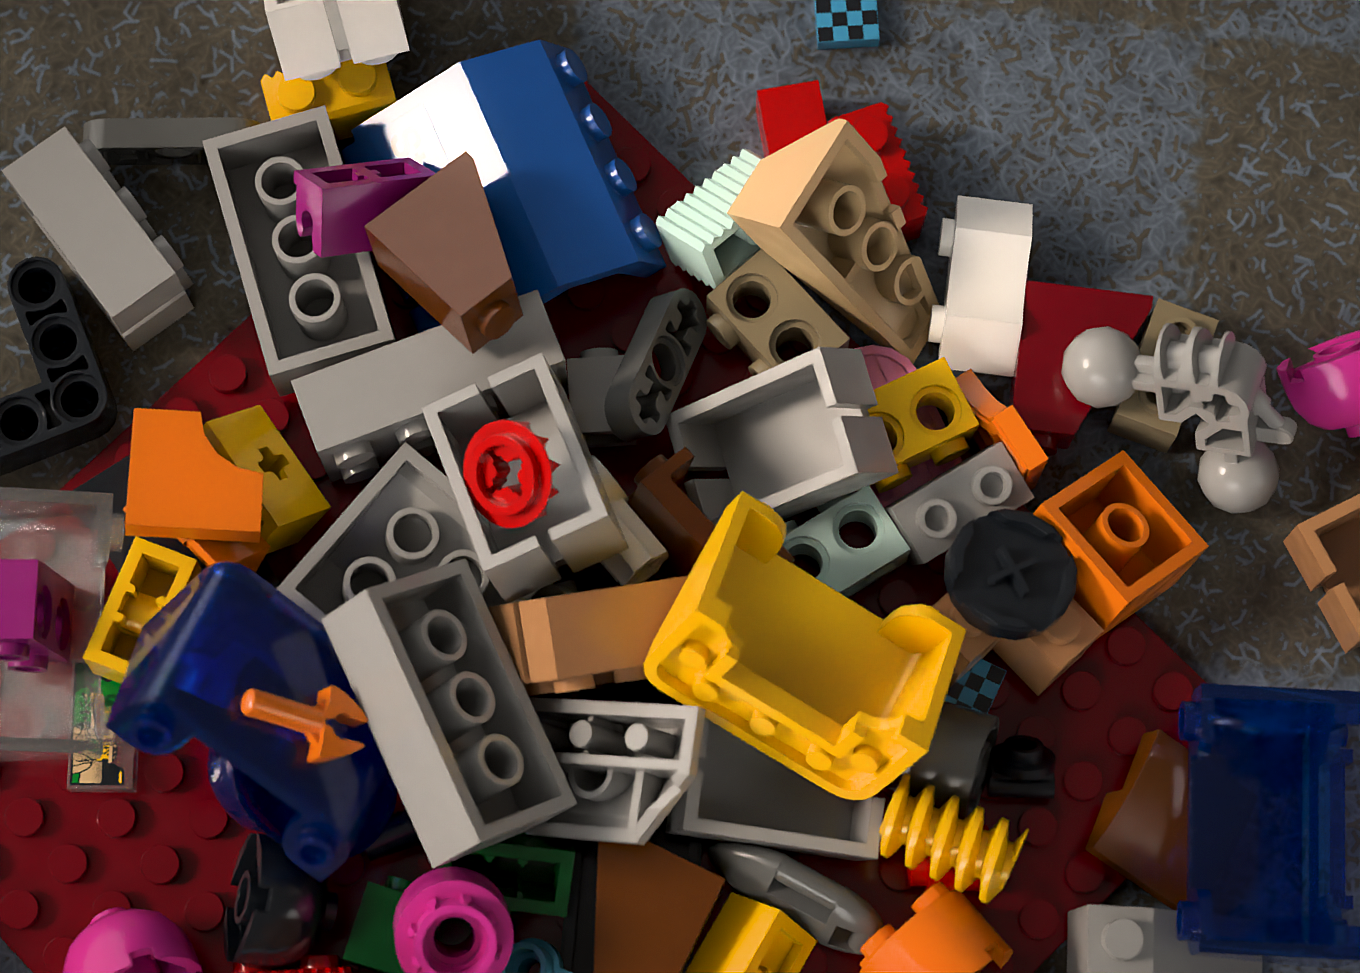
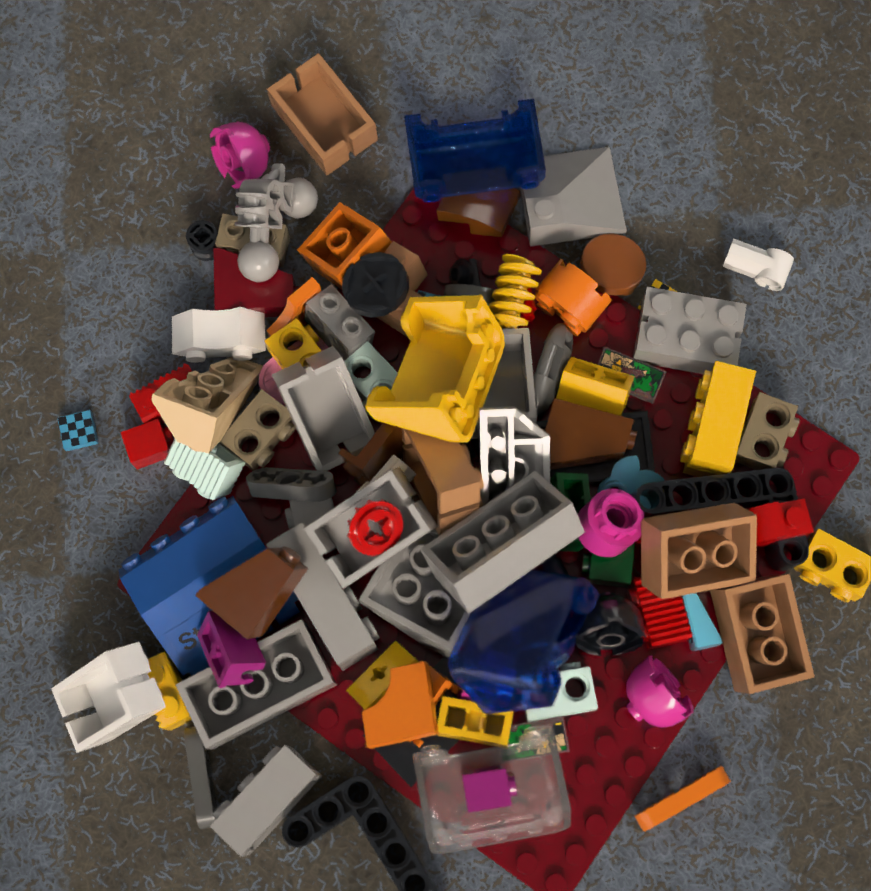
camera: 95 degrees left, 0 degrees up
(156, 788) = (565, 704): none -> light aqua brick
(331, 704) = (524, 605): orange bar -> none
(1181, 264) = (204, 247): none -> black wheel

